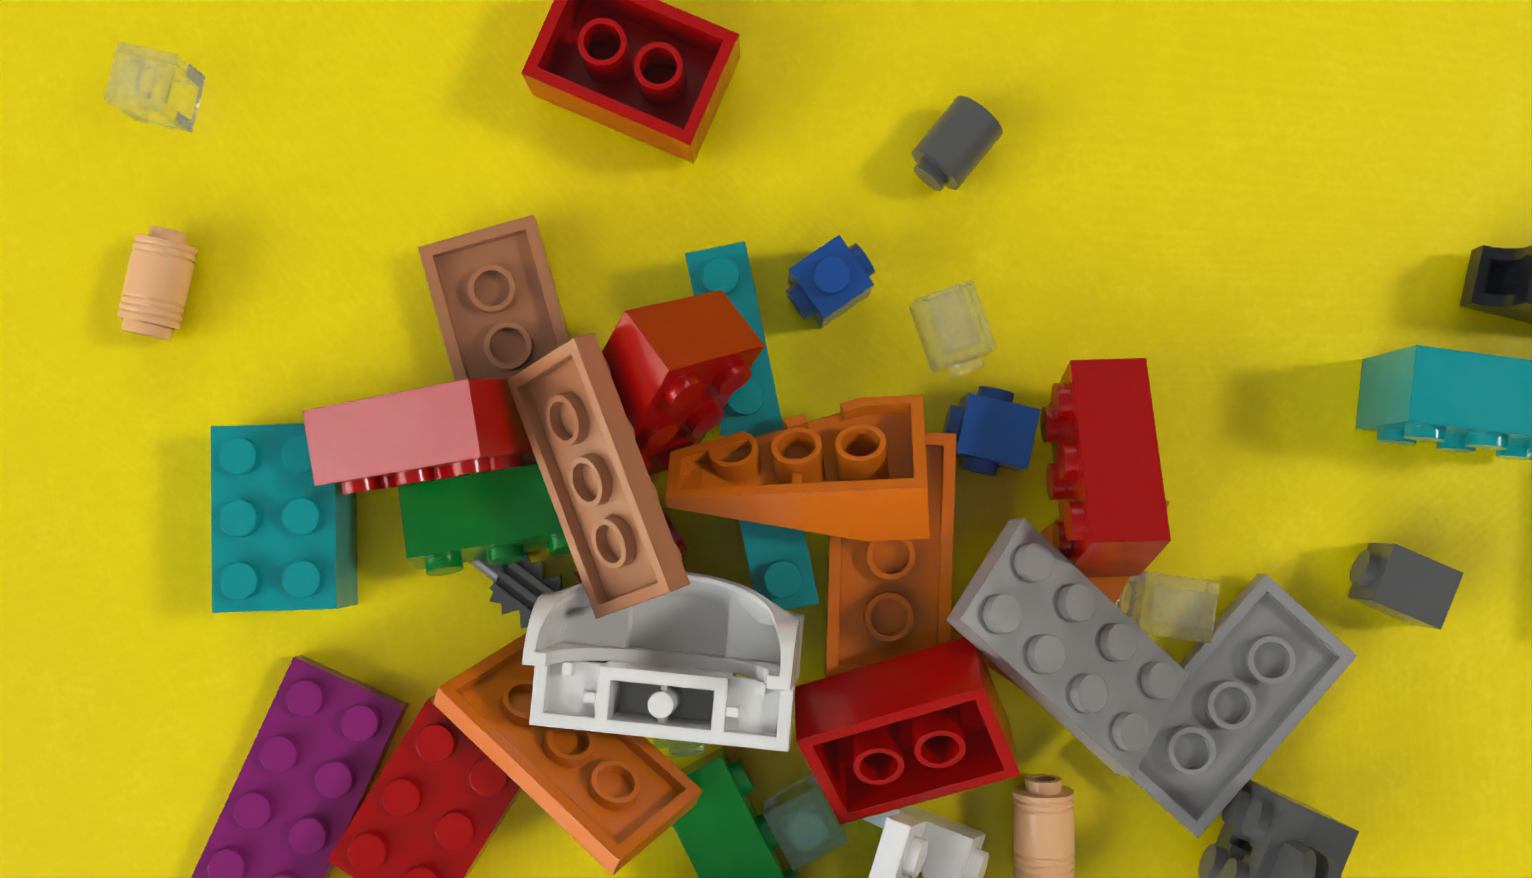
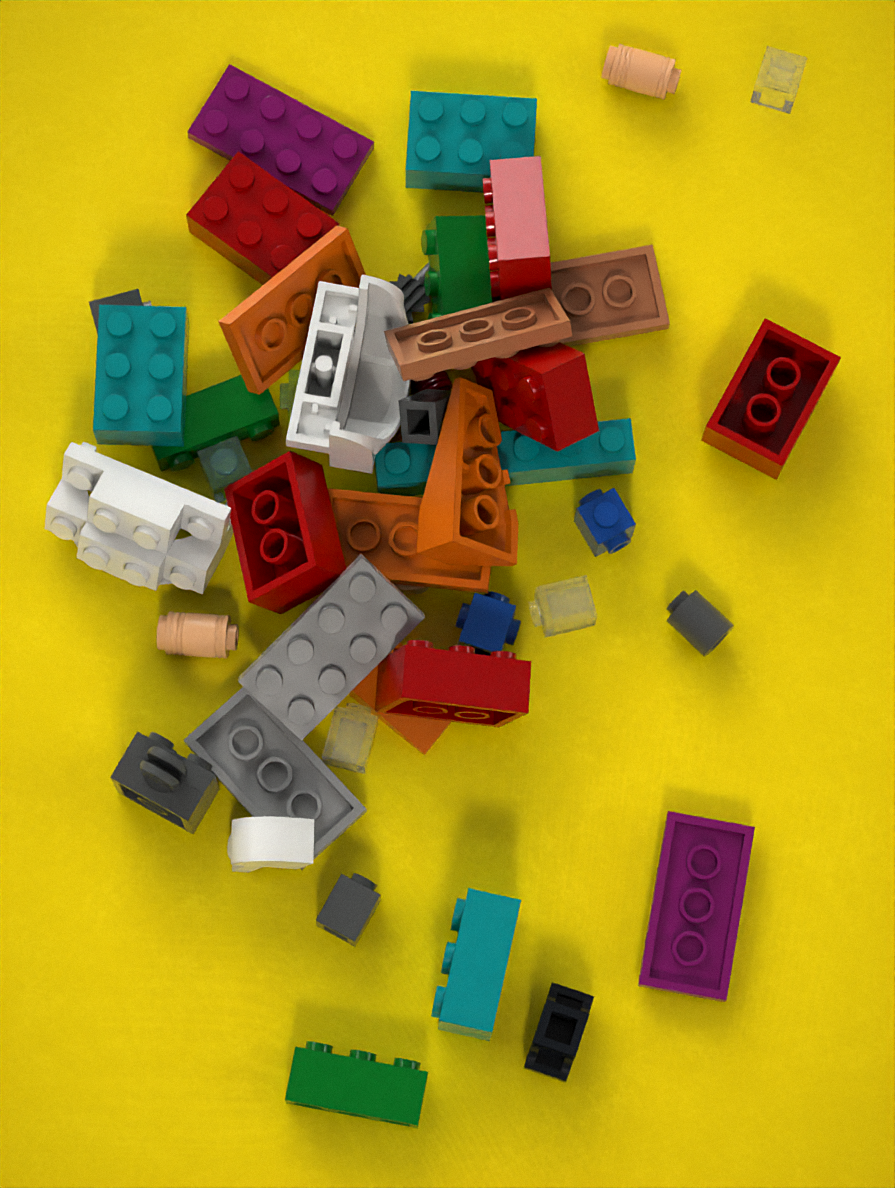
camera: 95 degrees right, 10 degrees down
(714, 546) = (423, 416): none -> dark grey brick
(1341, 121) = (696, 906): none -> magenta plate
(1349, 704) = (270, 843): none -> white brick

